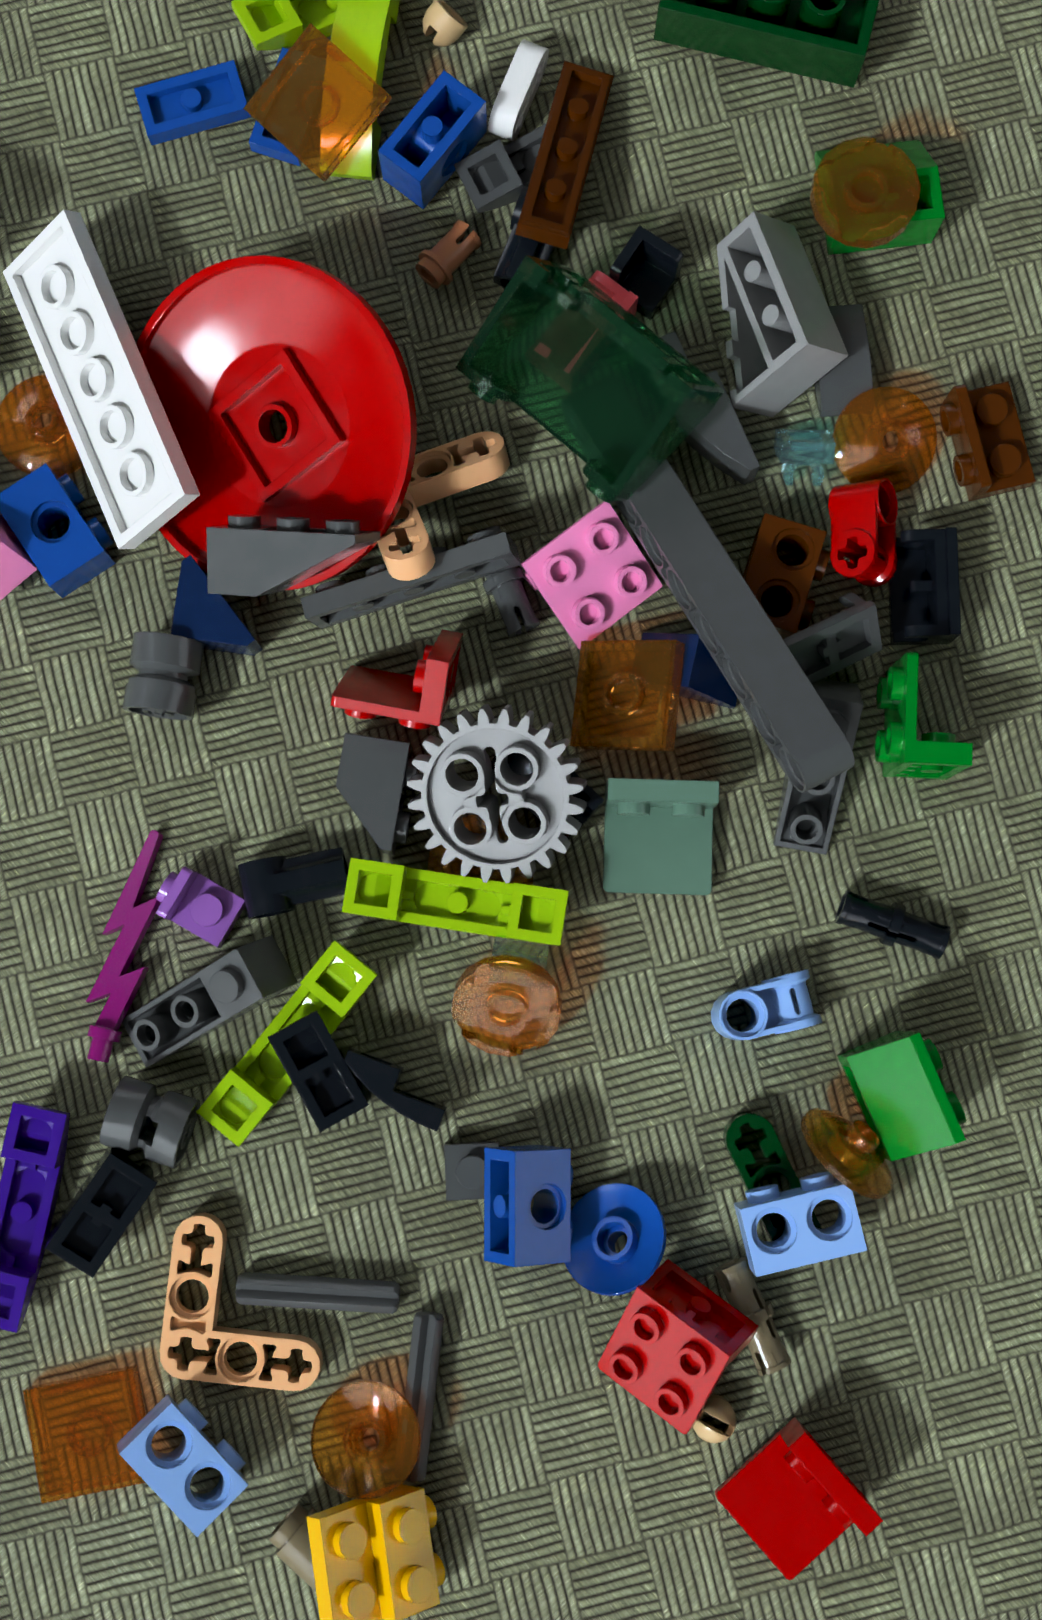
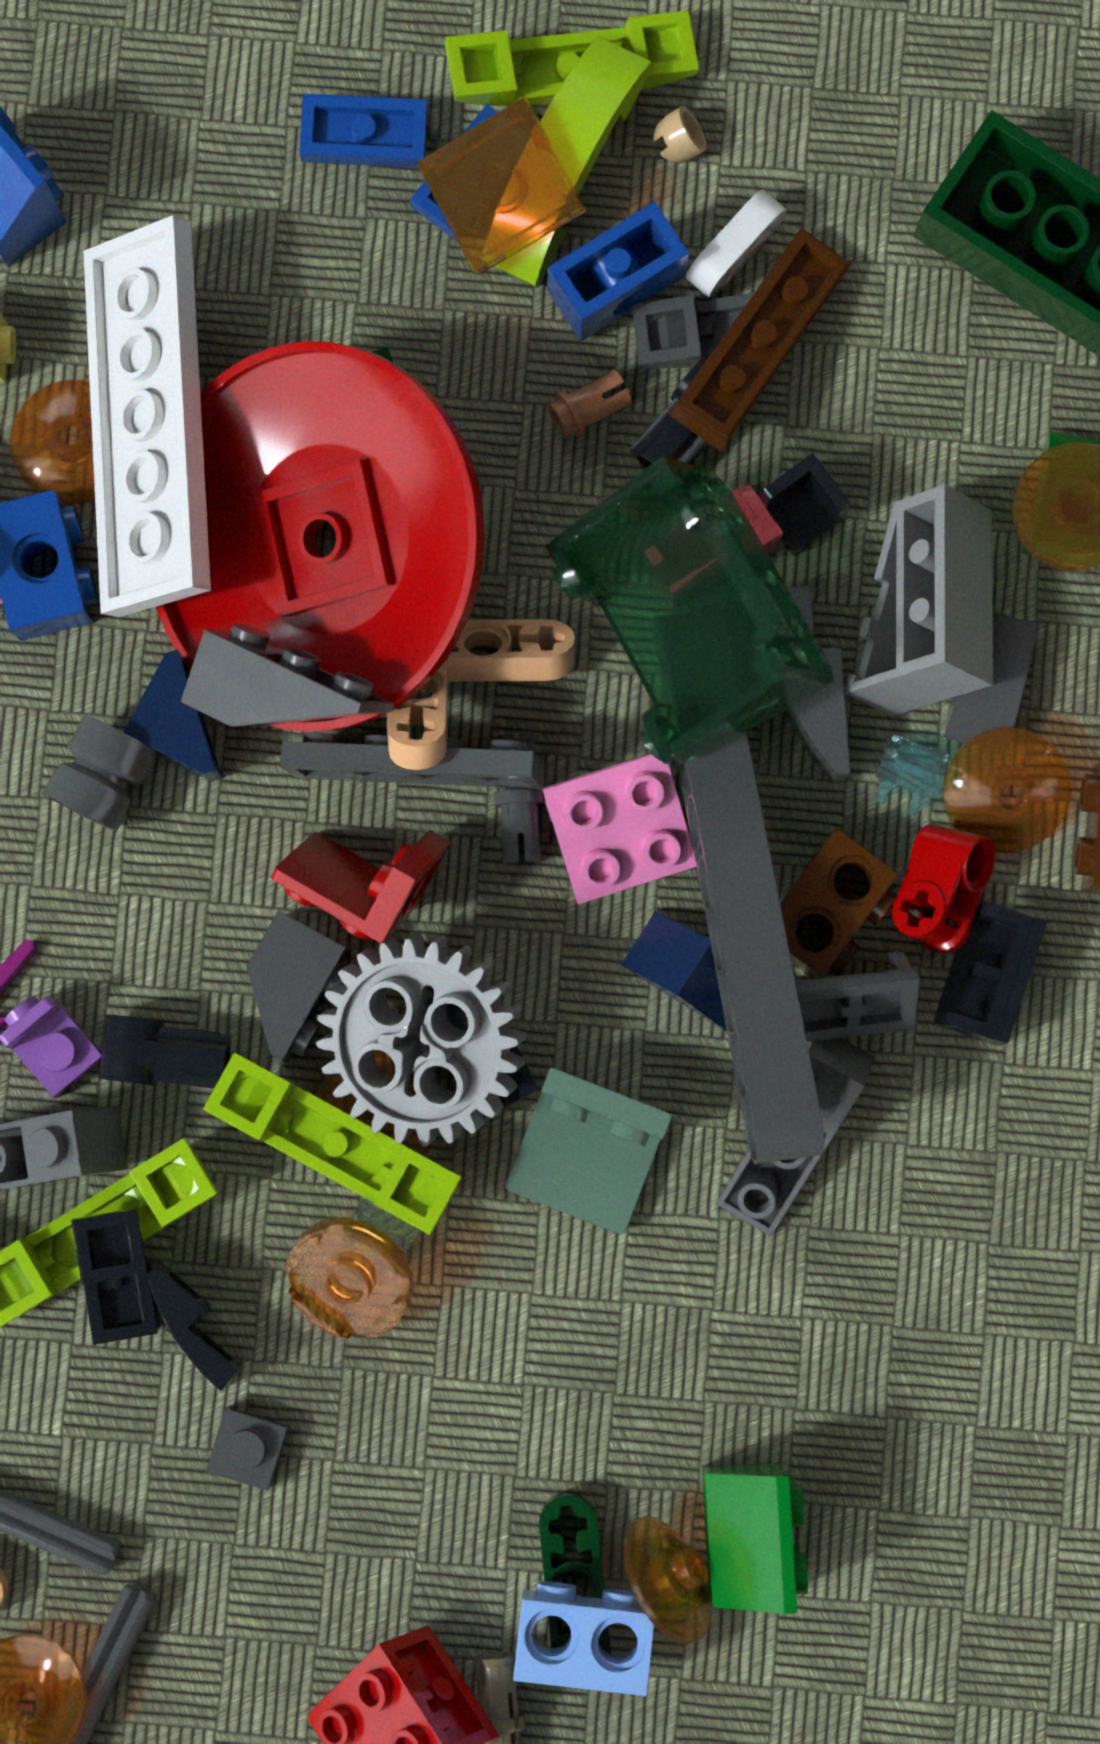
camera: 20 degrees right, 0 degrees up
(511, 1229) = (284, 1475): blue brick -> none
(598, 1223) = (354, 1567): blue dish -> none
(627, 695) = (609, 978): clear orange tile -> none
(775, 1006) = (643, 1385): light blue piece -> none
(893, 924) = (816, 1342): black pin -> none
(896, 746) = (920, 1165): green bracket -> none

